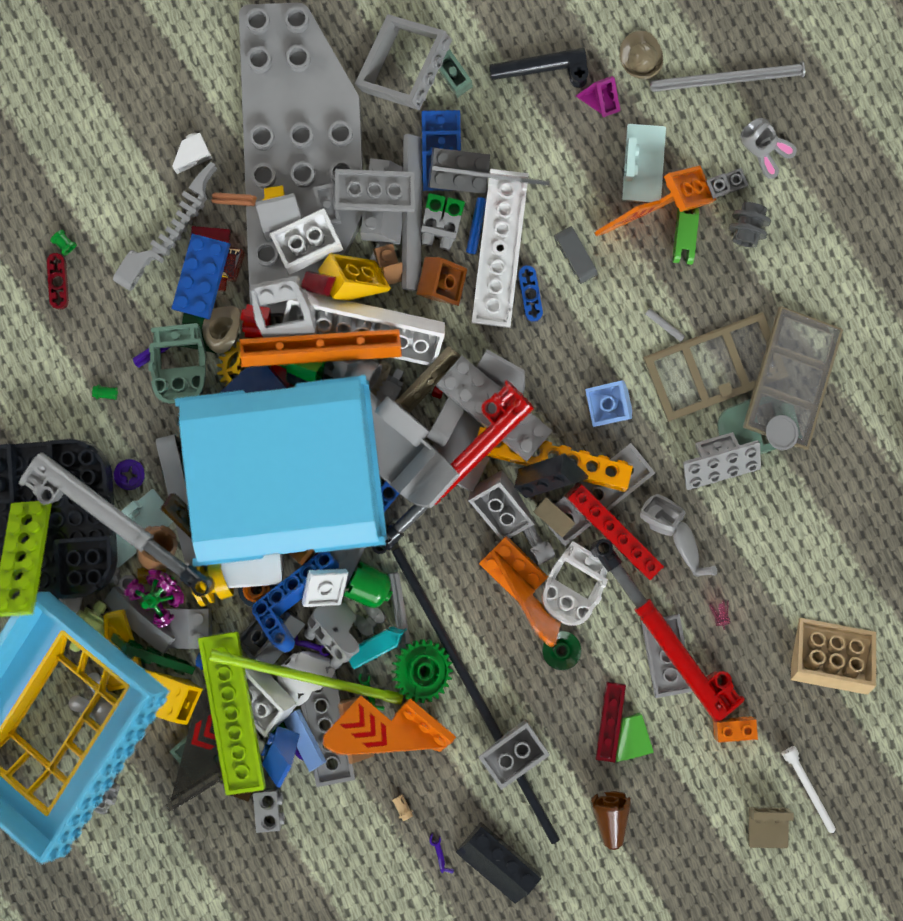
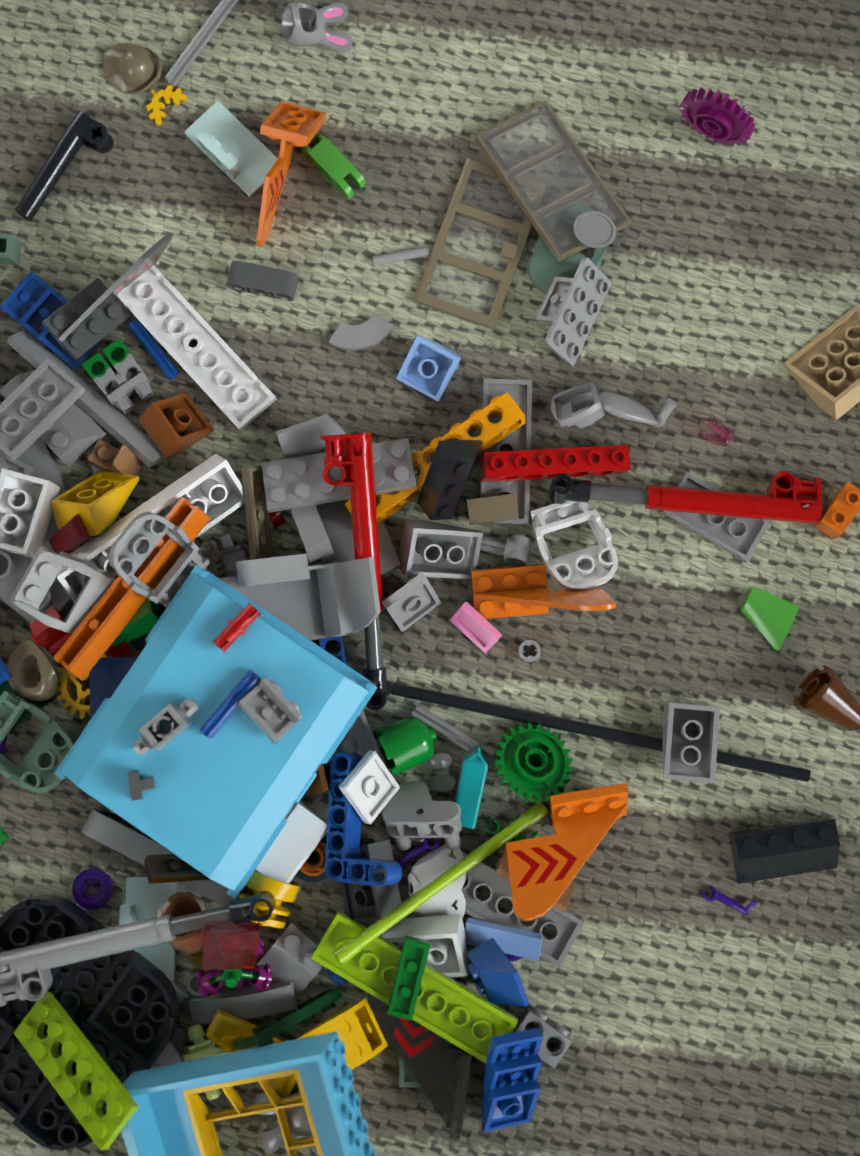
camera: 45 degrees left, 5 degrees down
(164, 587) = (230, 946): none -> clear red tile
(210, 456) = (138, 785): none -> dark grey tile
(228, 813) = (511, 1079): none -> blue slope
(235, 705) = (408, 977): none -> green tile
(242, 442) = (150, 729): none -> light grey piece
(301, 468) = (229, 705): none -> blue axle
(317, 495) = (270, 710): none -> light grey bracket
(347, 333) = (138, 542): none -> light grey slope
(348, 433) = (236, 627): none -> red pin
(402, 807) = (651, 898): tan pin -> none
(455, 517) = (411, 602): none -> light grey plate
(474, 567) = (475, 627): none -> bright pink tile
(483, 616) = (528, 643): none -> light grey bush
(533, 278) = (280, 356): blue beam -> none
(568, 658) = (639, 608): dark green dish -> none
(594, 345) = (362, 335): none -> light grey tile
(602, 96) = (137, 133): magenta slope -> none
(610, 722) = (735, 624): dark red tile -> none
(642, 92) = (167, 94): none -> yellow animal
(727, 183) = (320, 90): light grey slope -> none
(749, 225) = (375, 99): dark grey piece -> none

